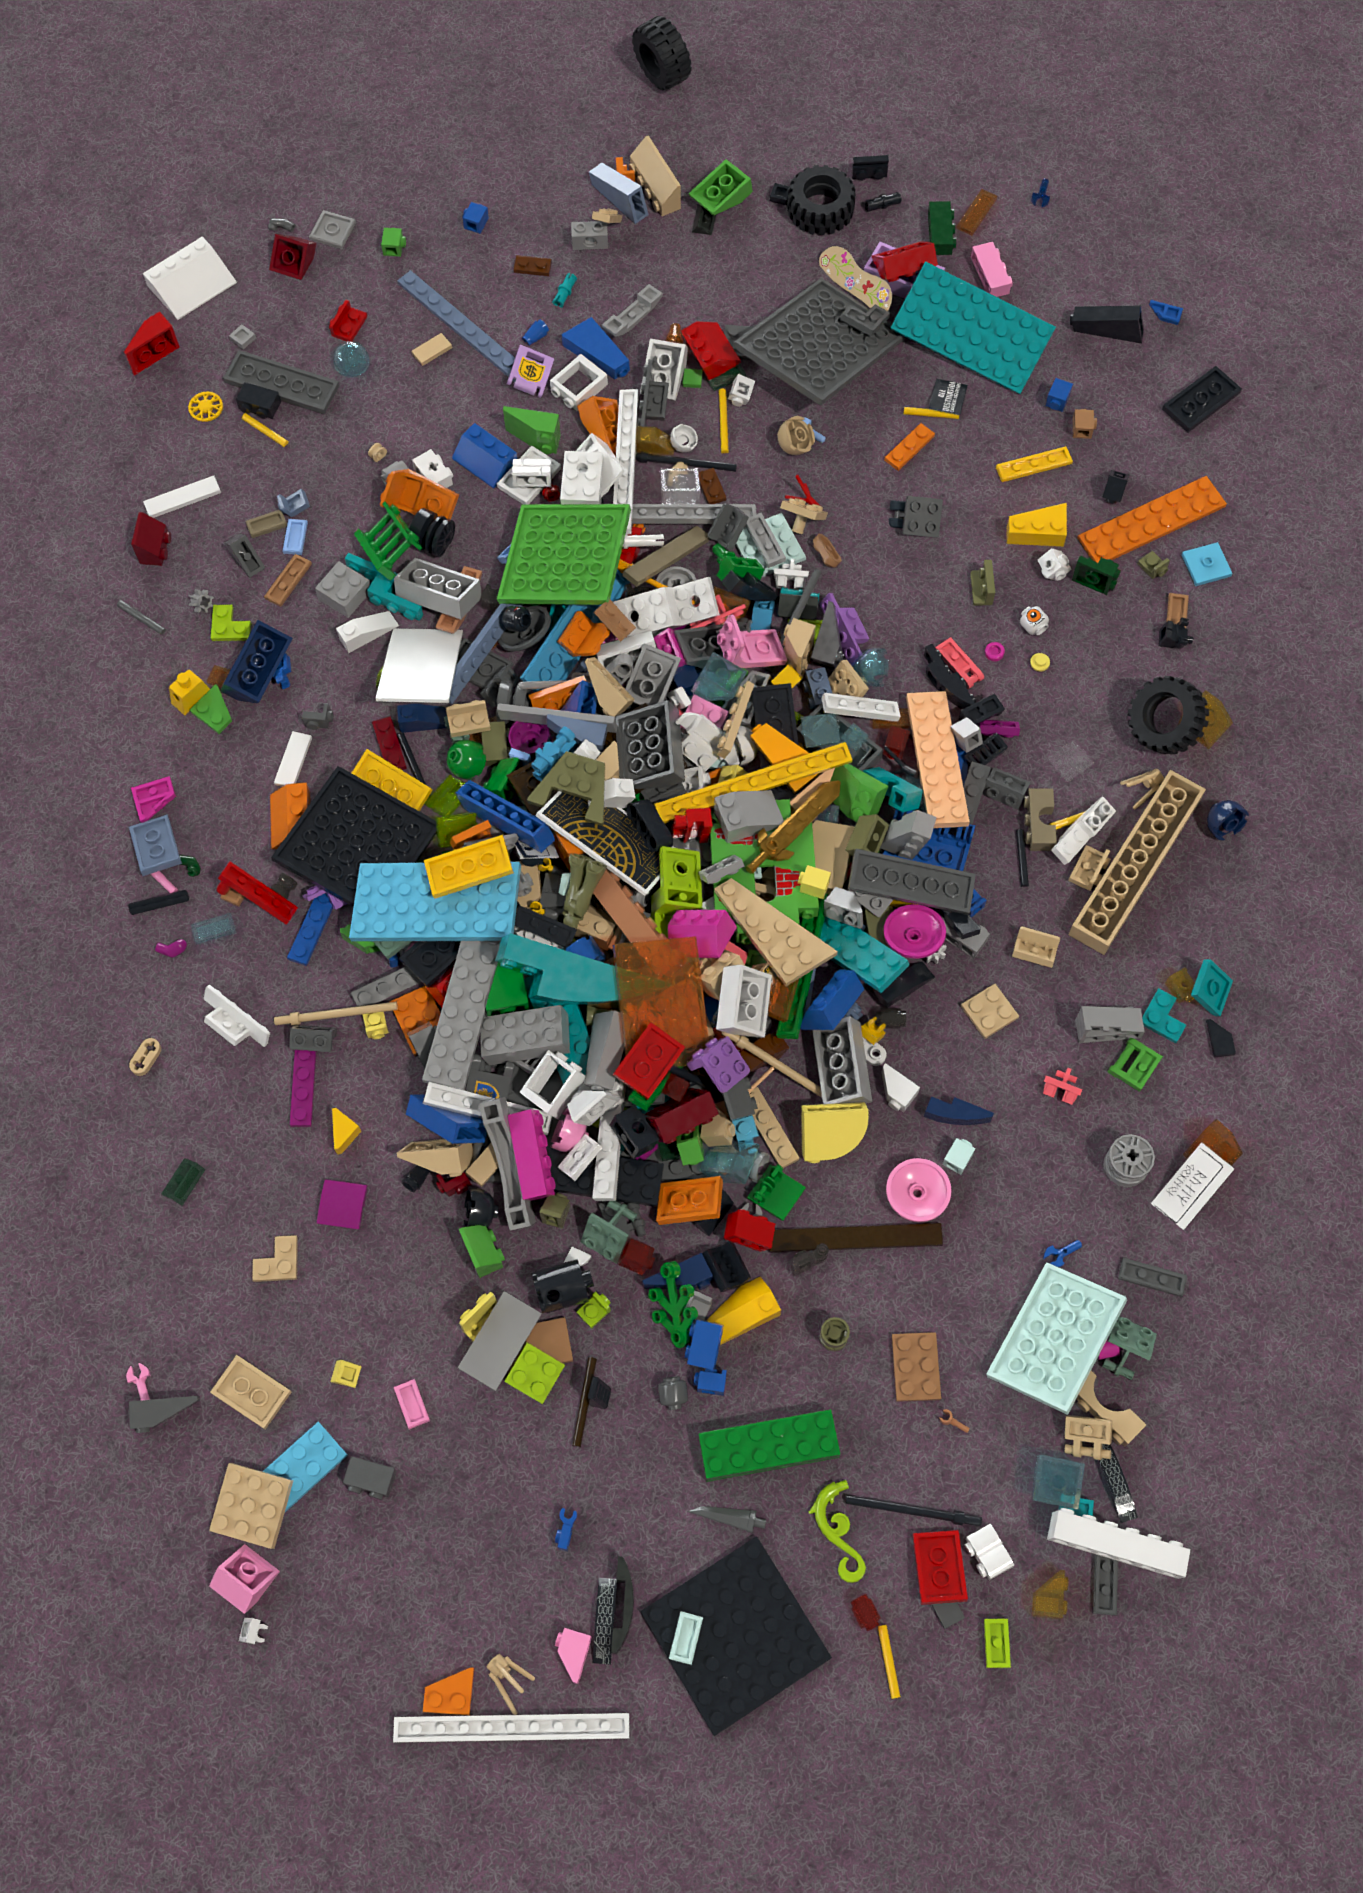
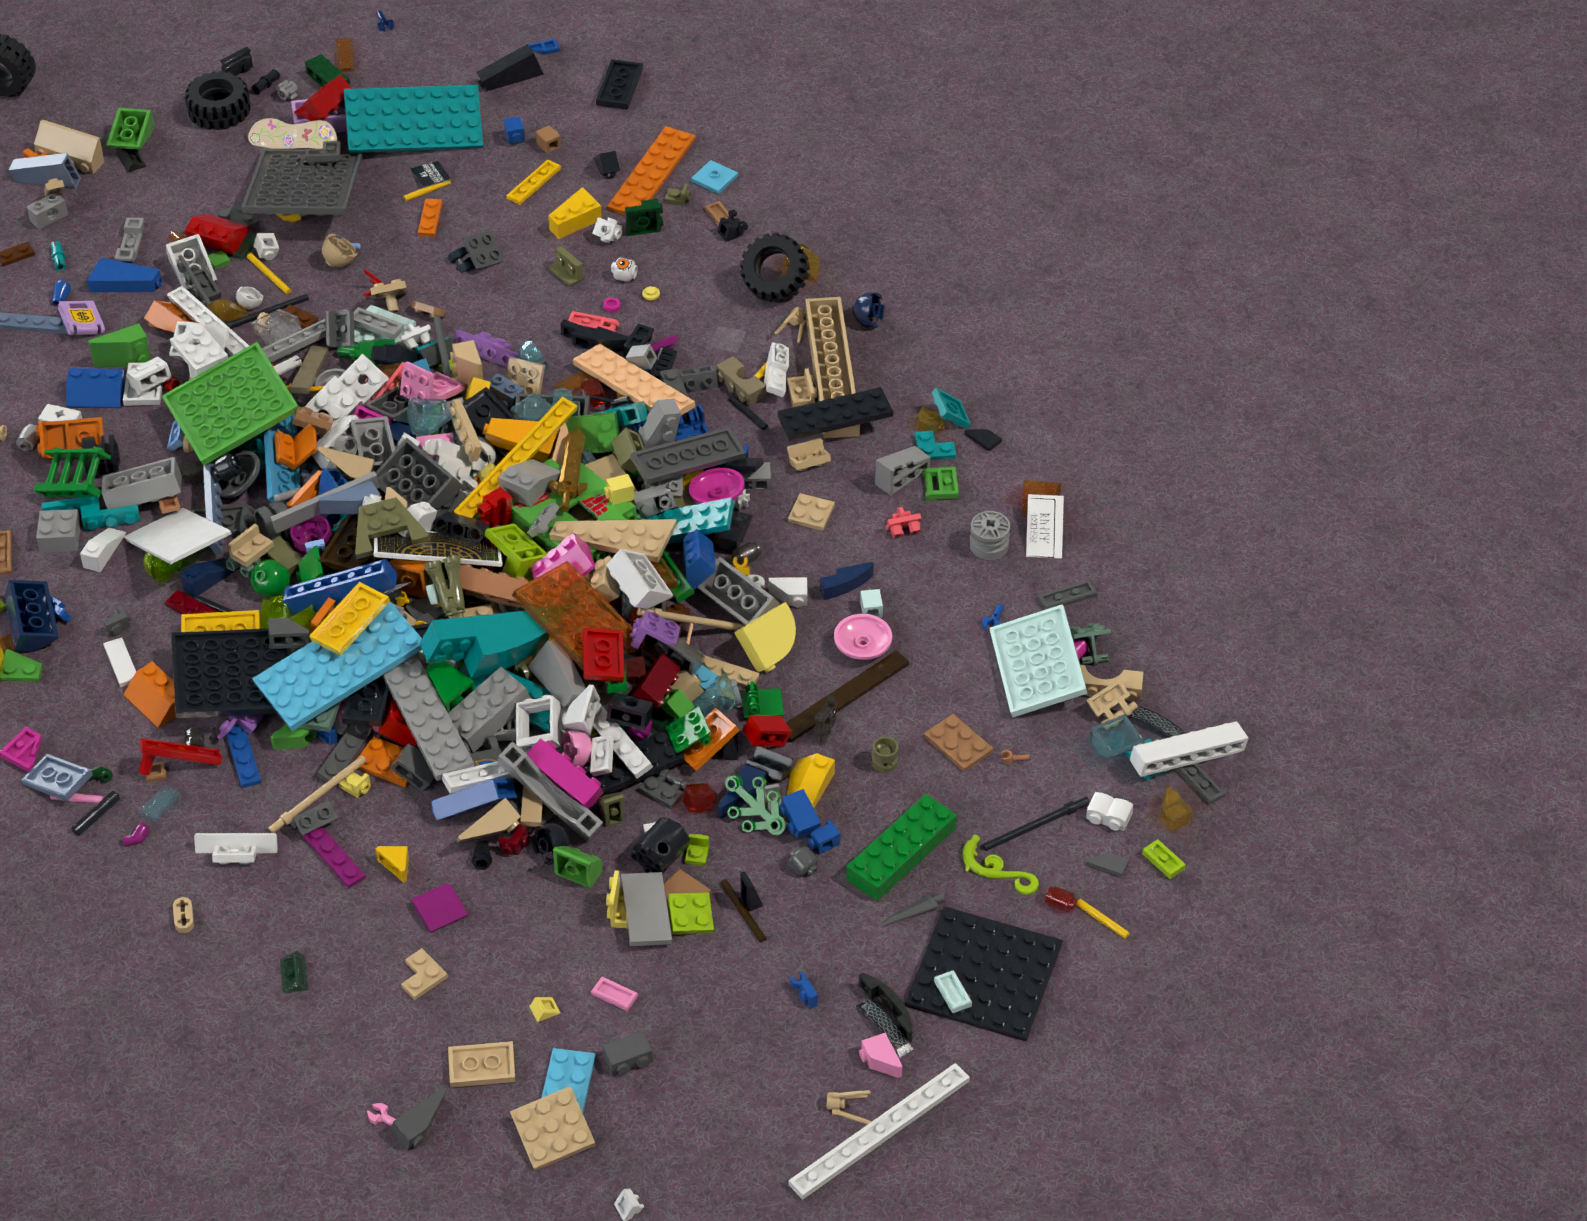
camera: 40 degrees left, 20 degrees down
(243, 1578) = (590, 1179): bright pink slope -> none
(425, 832) = (287, 634): none -> dark grey slope
(450, 1694) = (815, 1142): orange wing -> none
(553, 752) = (347, 520): dark azure hips -> none
(587, 368) = (132, 294): white window -> none
(604, 1236) = (664, 797): sand green plate -> none
(676, 1184) = (689, 730): none -> green hinge
(779, 194) = (179, 114): black plate -> none
(828, 644) = (489, 352): flat silver slope -> none
(860, 707) = (548, 381): white plate -> none
(892, 224) = (287, 90): none -> light grey gear
(939, 1567) = (1085, 840): red plate -> none
(991, 269) = (383, 77): bright pink brick -> none
(1090, 924) = (835, 413): none -> black plate

